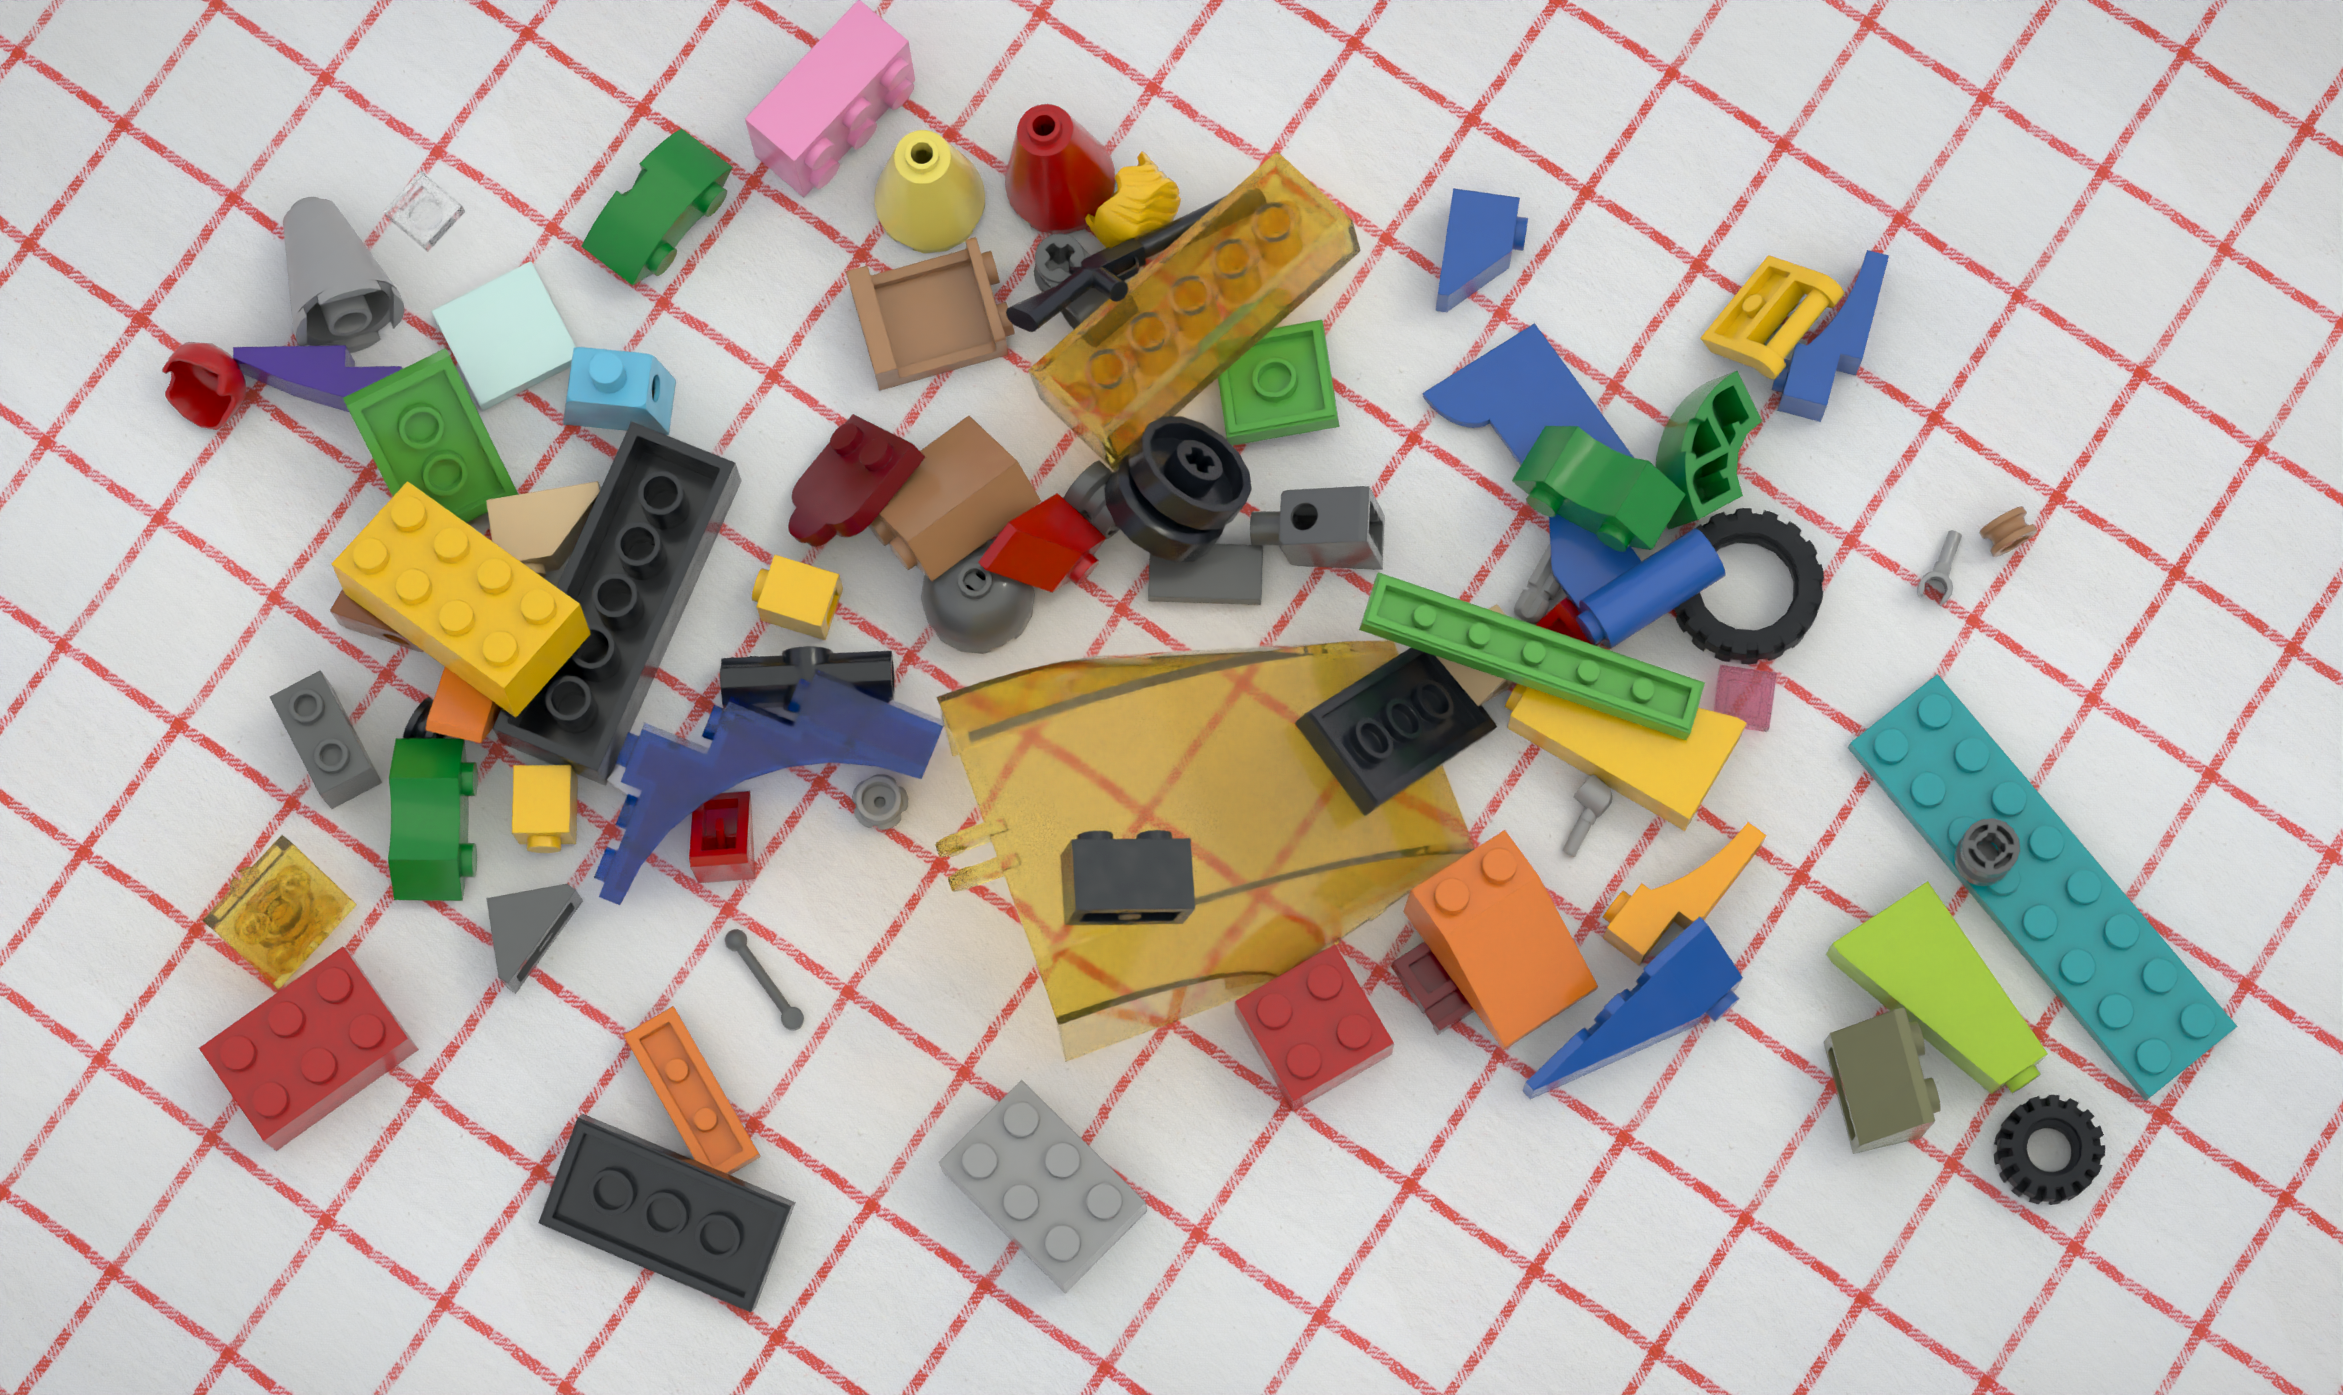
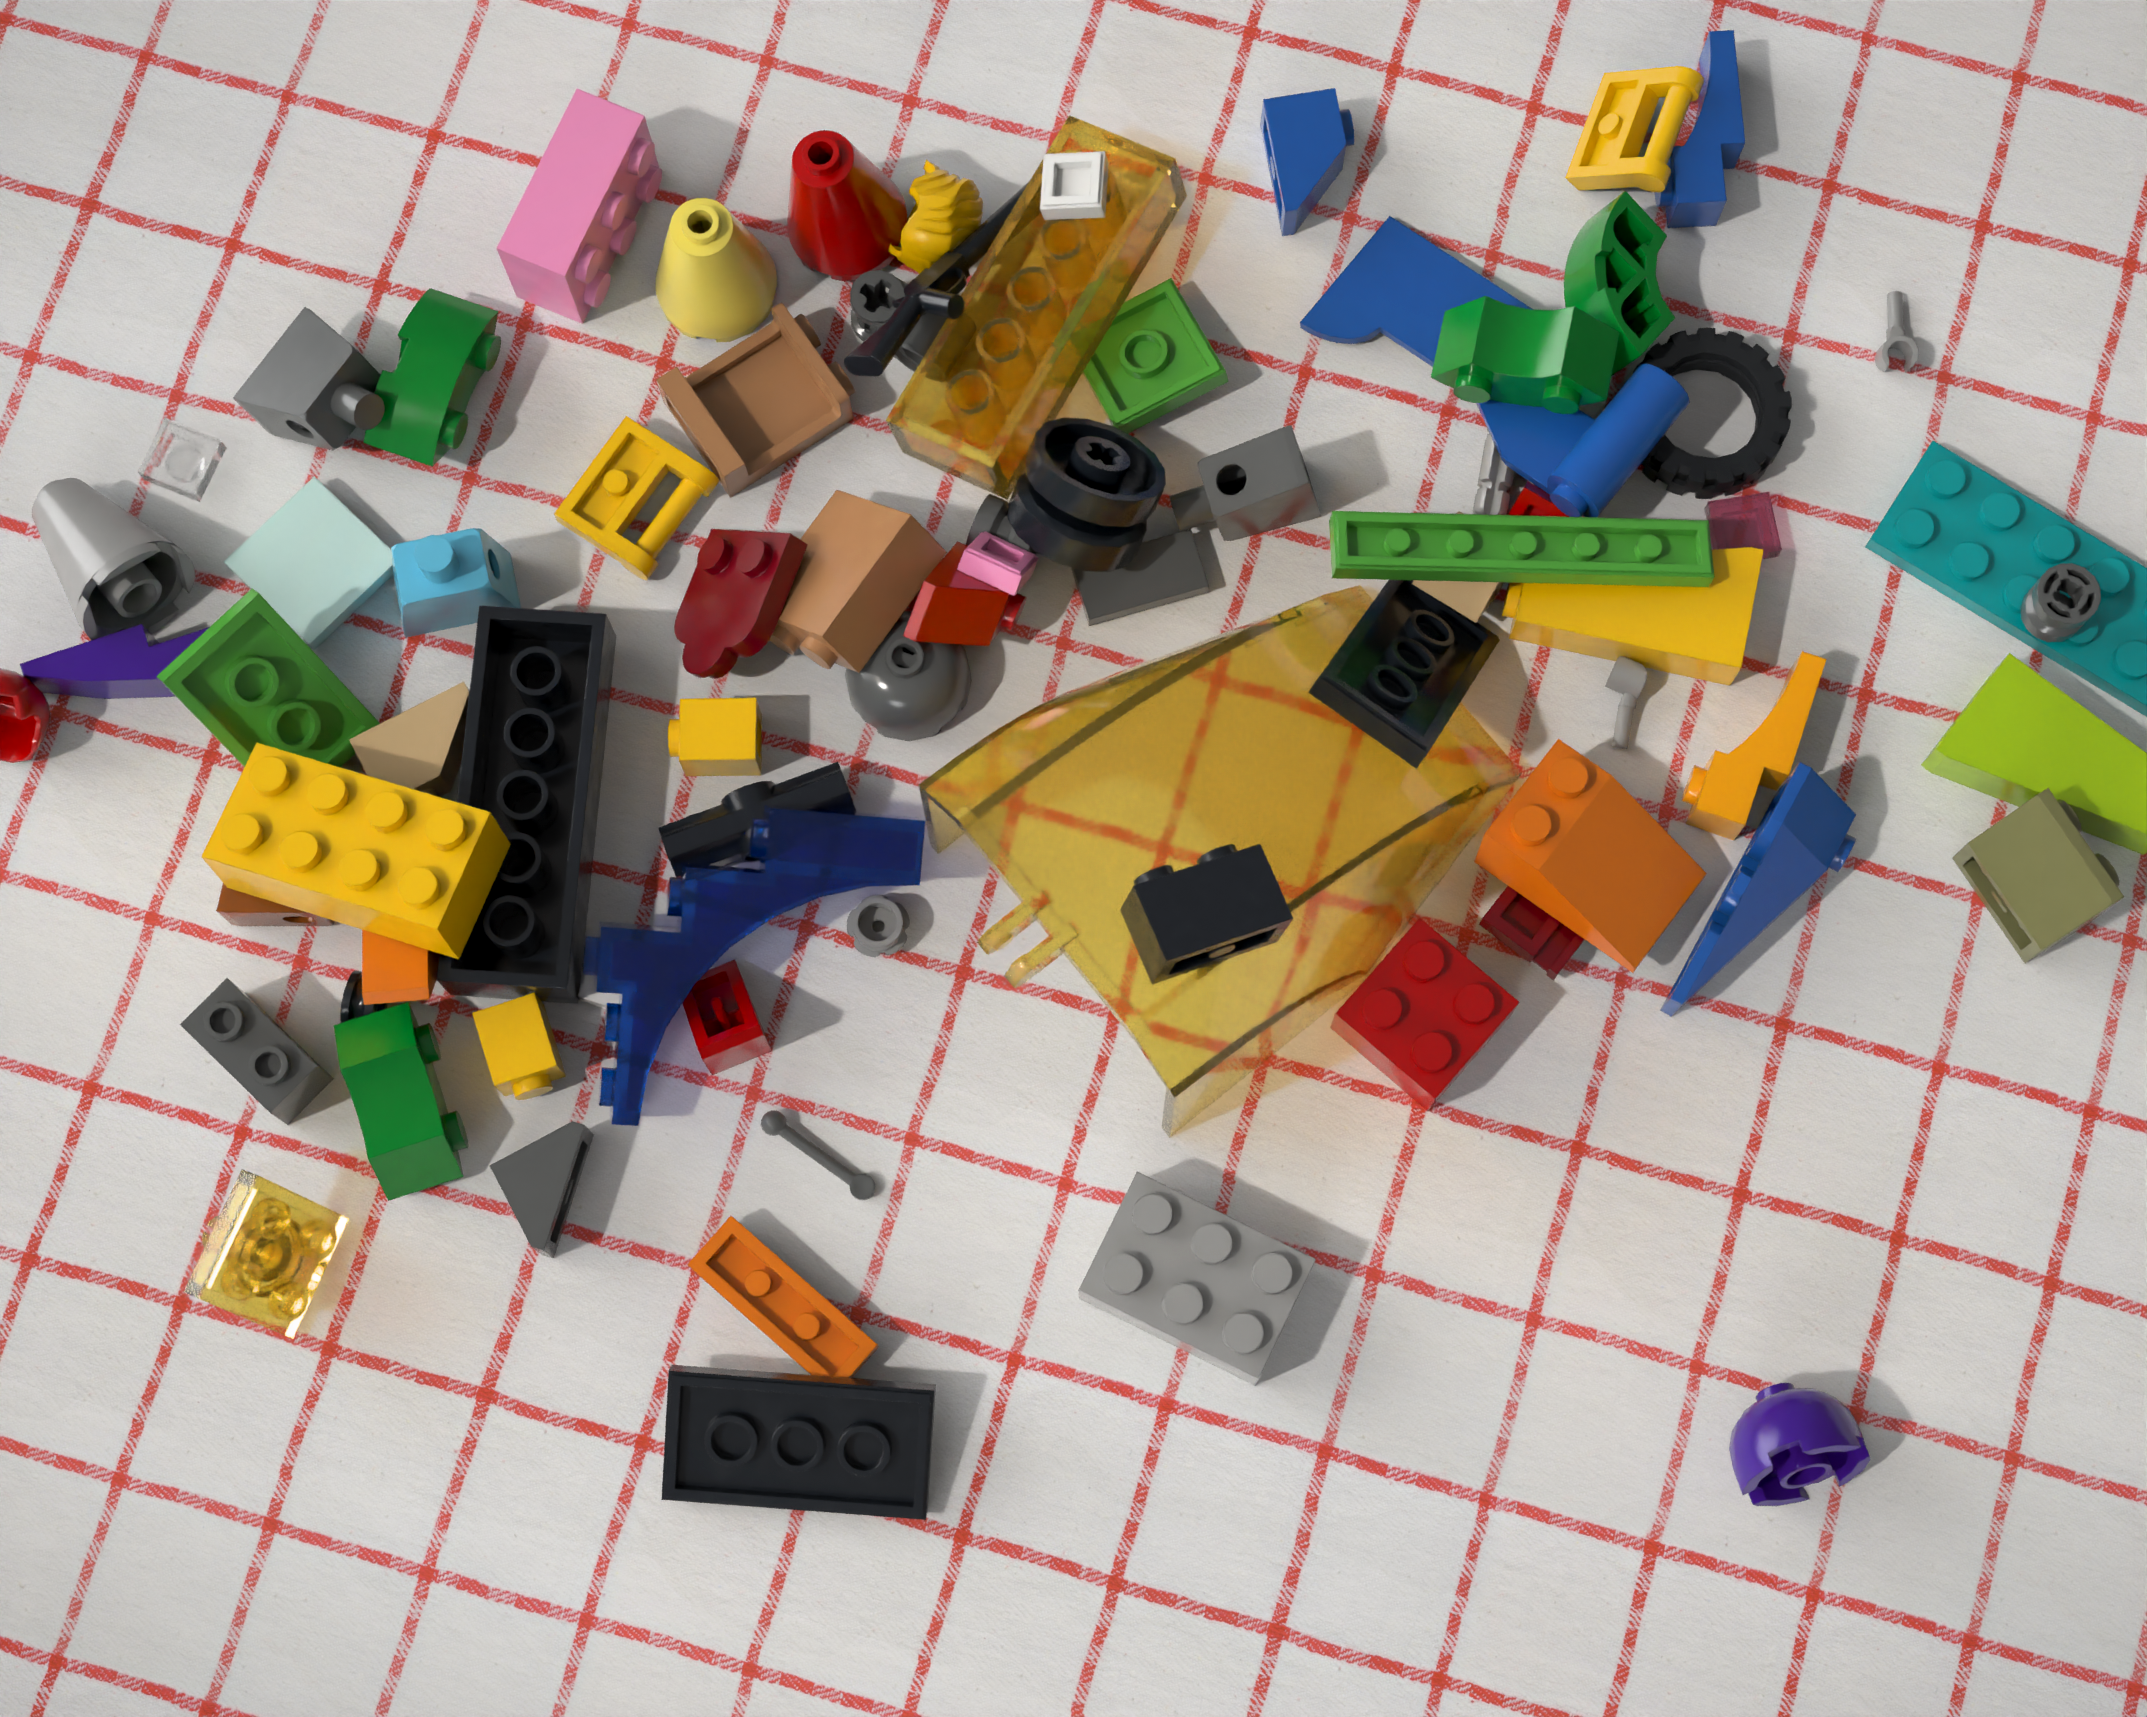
camera: 20 degrees left, 0 degrees up
(308, 1049) = (346, 1393): red brick -> none
(554, 184) = (313, 386): none -> torso
(788, 351) = (621, 484): none -> yellow plate
(1082, 524) = (998, 563): none -> bright pink tile
(1257, 217) = (1074, 185): none -> white tile
(2008, 531) = (1951, 273): medium nougat bush -> none

